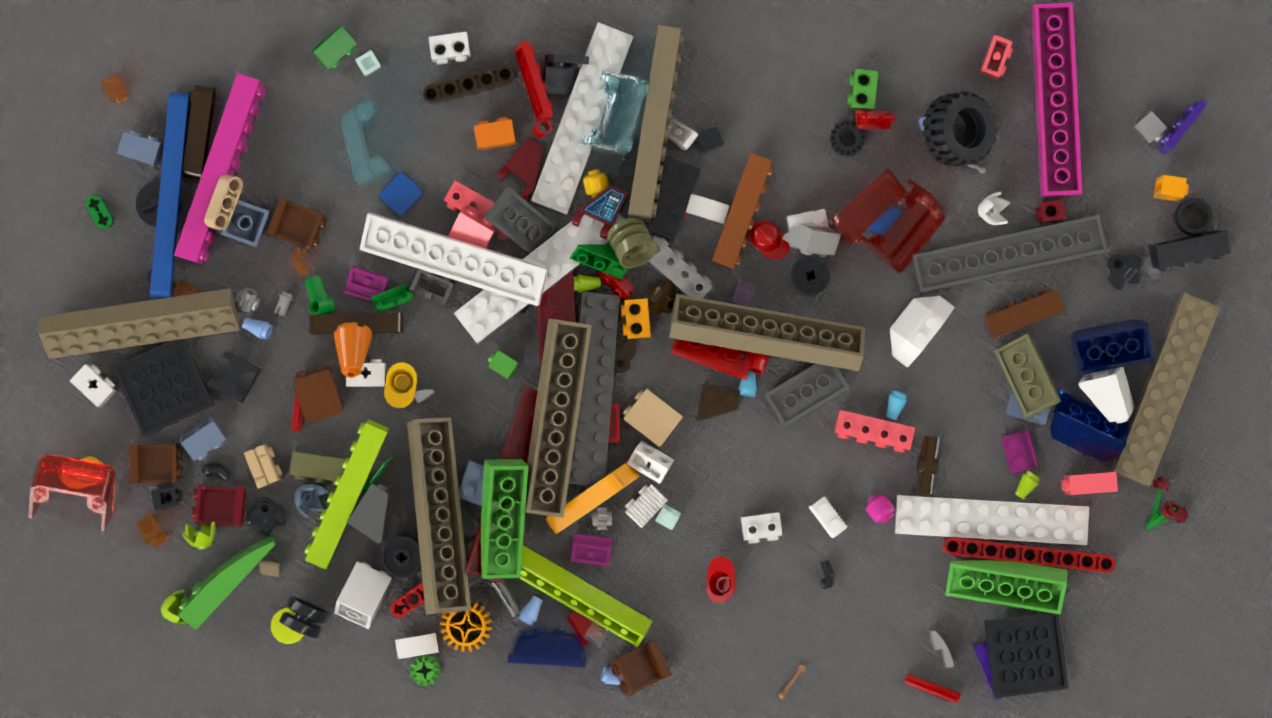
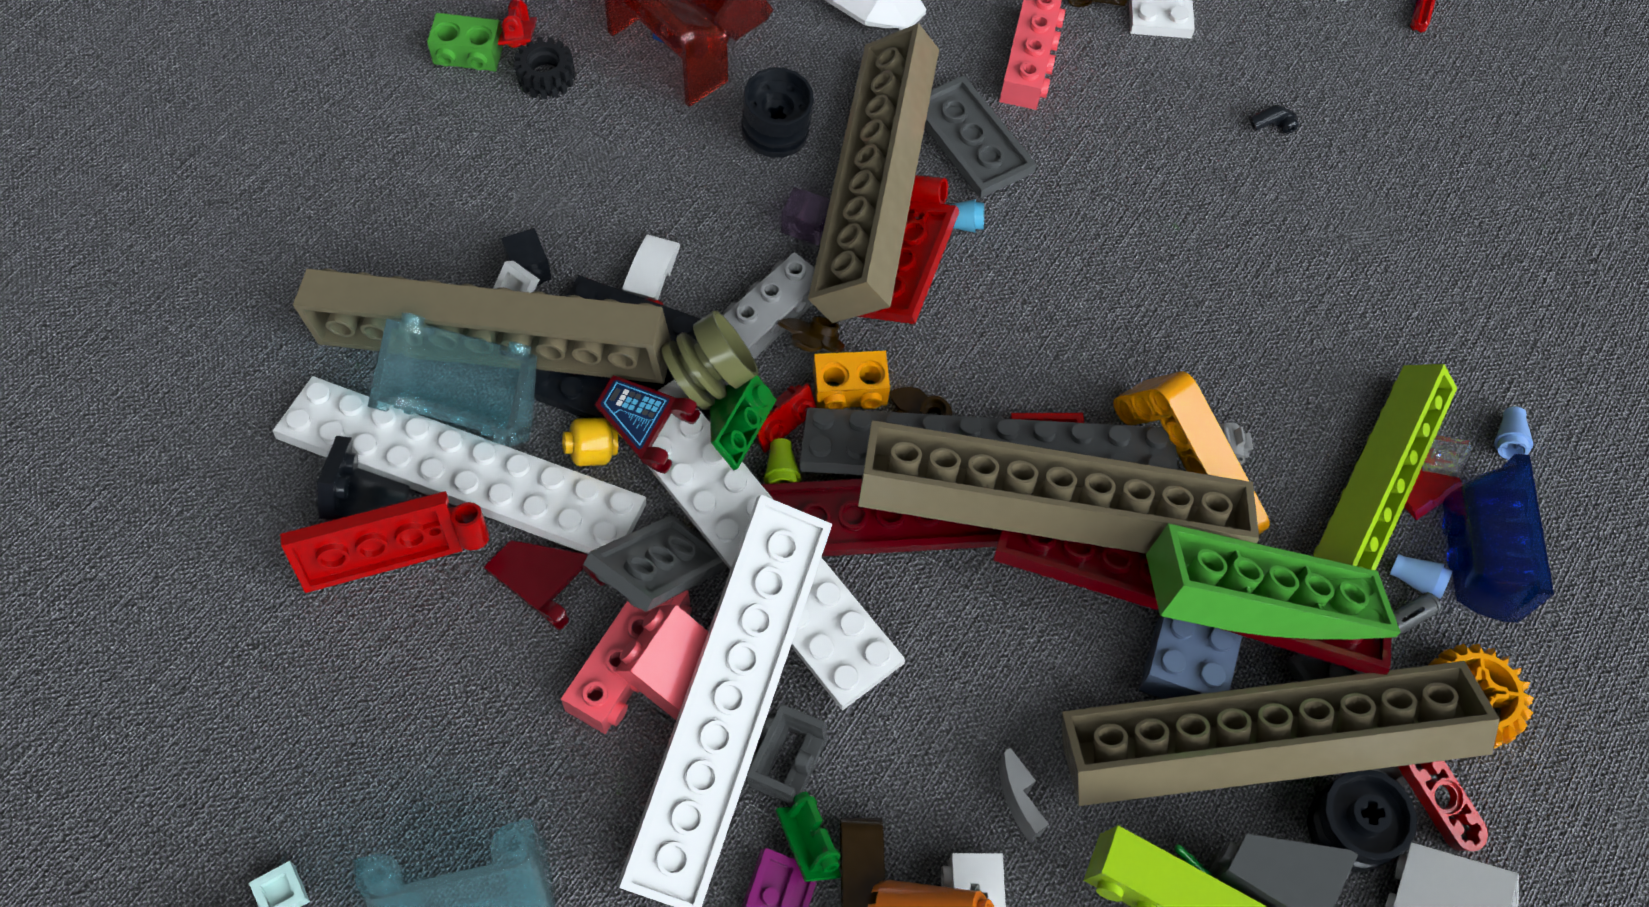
camera: 95 degrees left, 25 degrees down
(400, 385) = (1000, 818): yellow piece -> none
(401, 194) = (581, 826): blue piece -> none
(416, 645) = (1537, 797): white slope -> none
(431, 663) = (1575, 798): bright green gear -> none
(449, 42) = (263, 715): white brick -> none
(459, 82) = (365, 693): dark brown beam -> none
(494, 134) = (471, 622): orange brick -> none
(503, 364) = (948, 607): bright green brick -> none
(591, 549) = (1288, 467): magenta plate -> none
(640, 668) = (1494, 388): reddish brown panel -> none
(646, 505) = (1208, 371): white brick -> none
(650, 462) = (1116, 359): white brick -> none
(652, 417) = (1032, 359): tan panel -> none
(668, 517) = (1211, 339): light aqua brick -> none
(716, 401) = (997, 267): dark brown wing -> none
(720, 579) = (1313, 256): red piece -> none
(741, 211) = (651, 210): dark orange brick -> none
(761, 526) = (1209, 202): white brick -> none
(768, 239) = (709, 185): red piece -> none
(801, 668) = (1434, 162): medium nougat hinge -> none
(813, 239) = (714, 92): light grey slope -> none
(815, 218) = (685, 121): white brick -> none
(828, 517) = (1180, 109): white brick -> none
(880, 509) = (1158, 44): dark pink head -> none
(895, 404) = (987, 21): medium azure cone -> none

